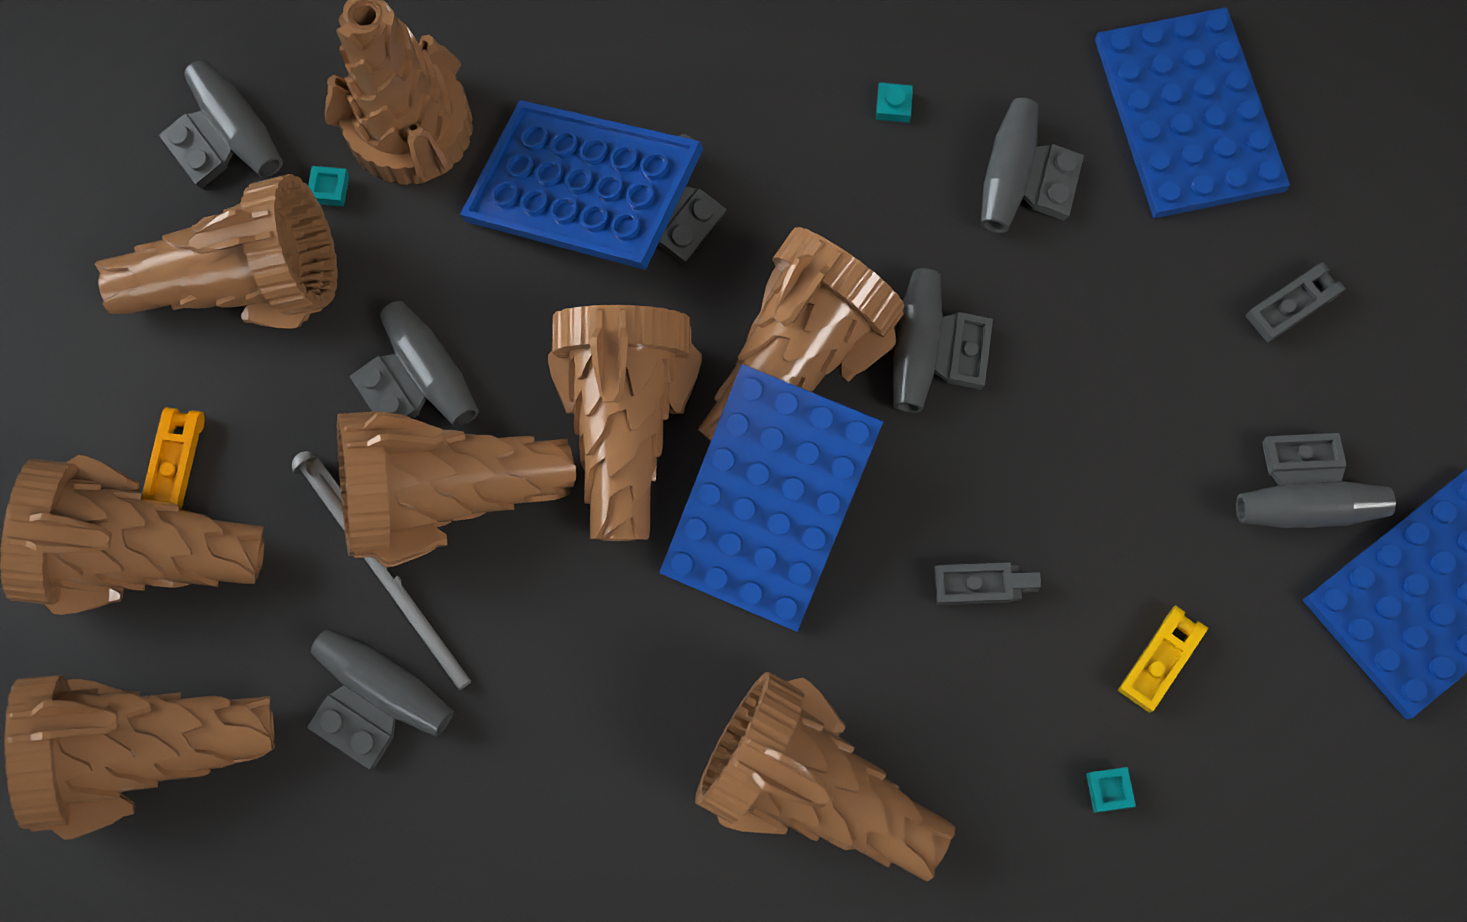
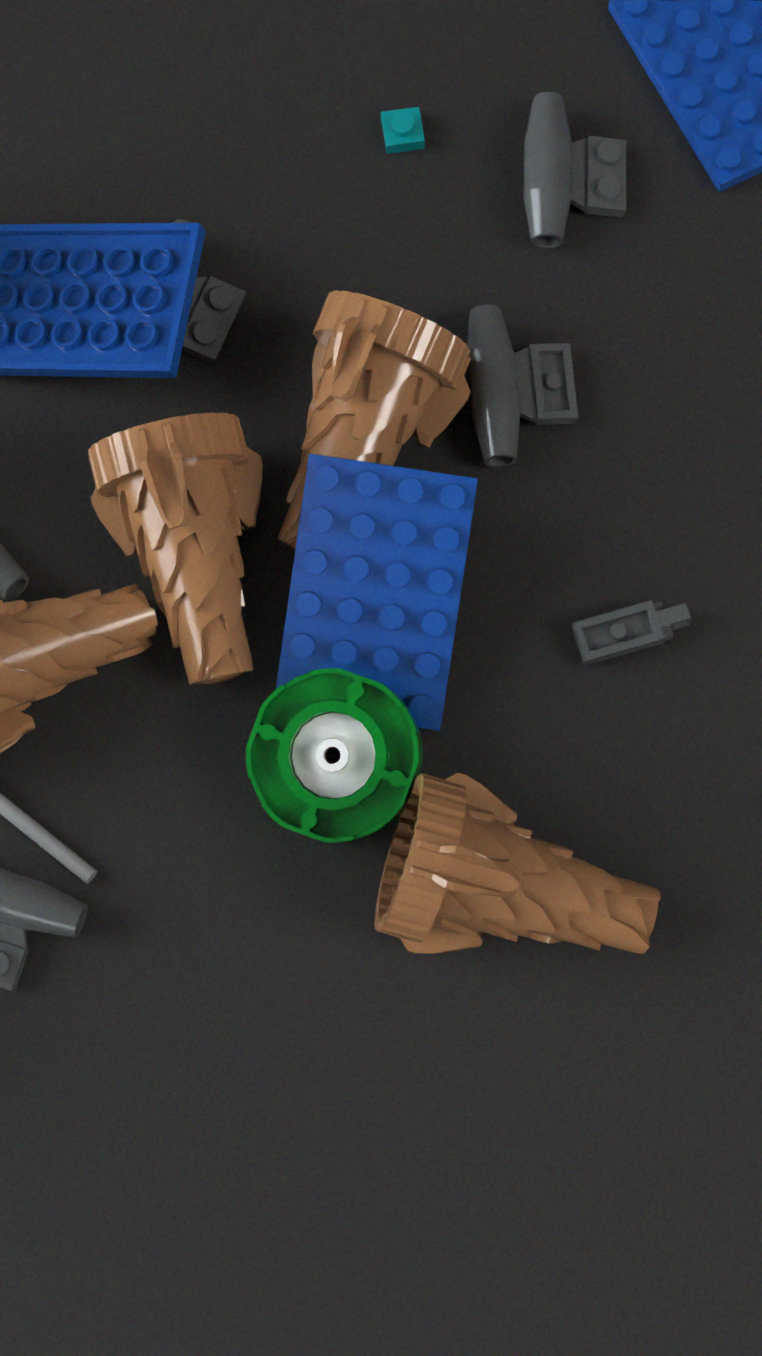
camera: 10 degrees left, 0 degrees up
(661, 639) = (293, 748): none -> green piece

